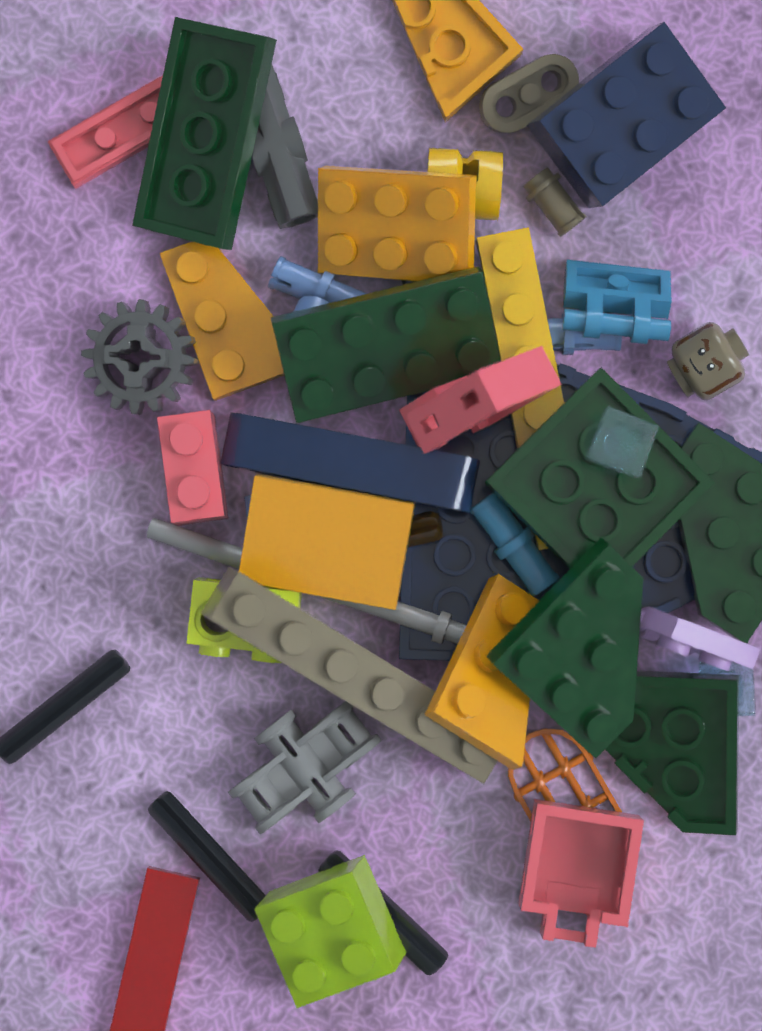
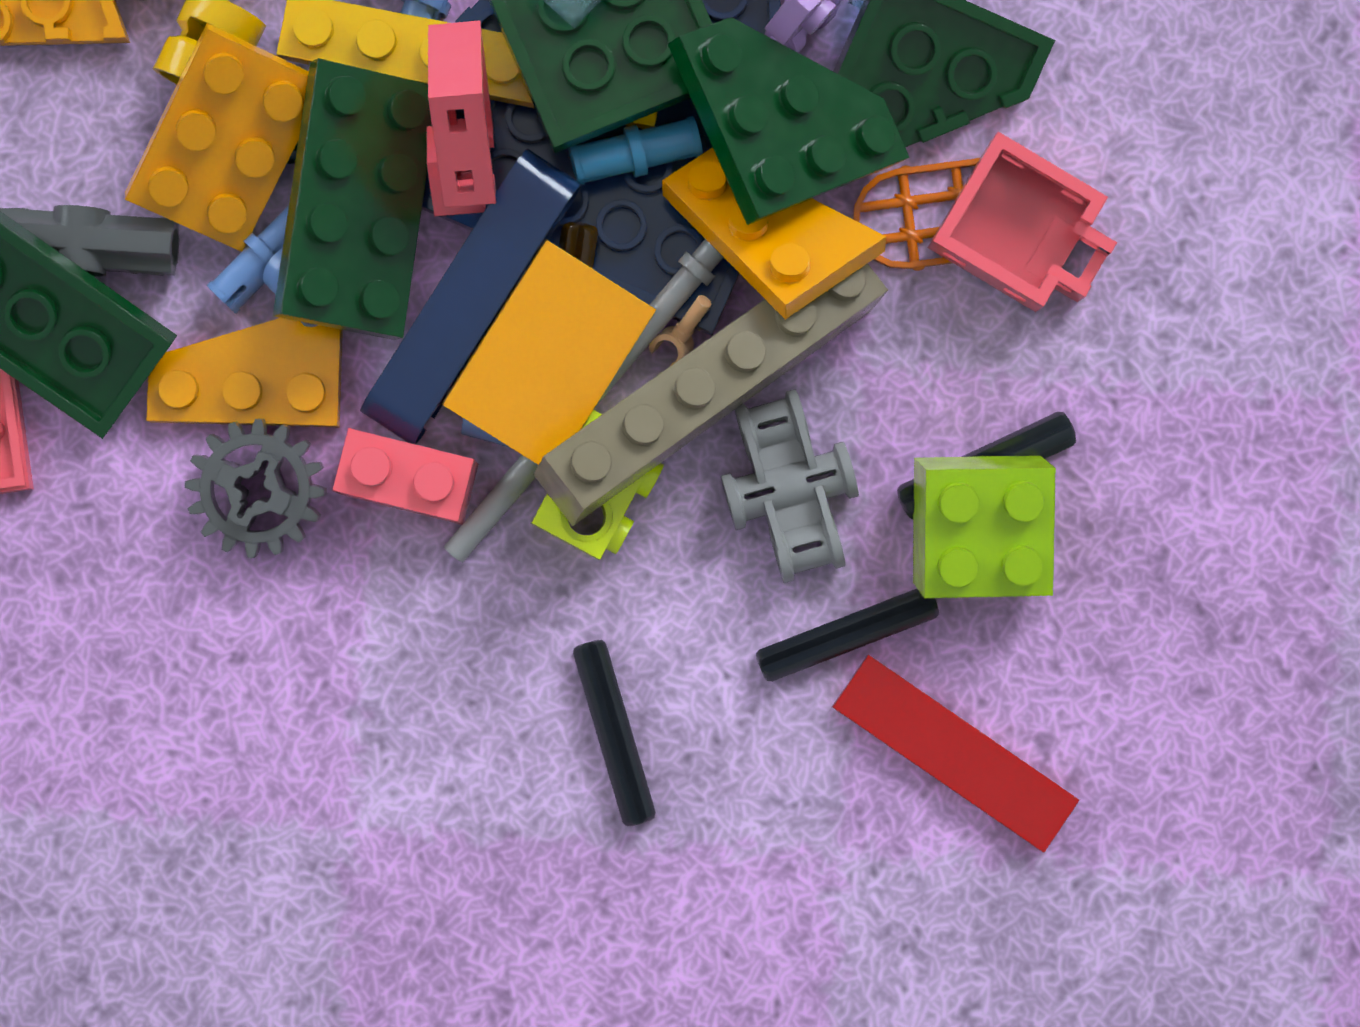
camera: 70 degrees left, 0 degrees up
(389, 635) = (682, 332): none -> light nougat hand

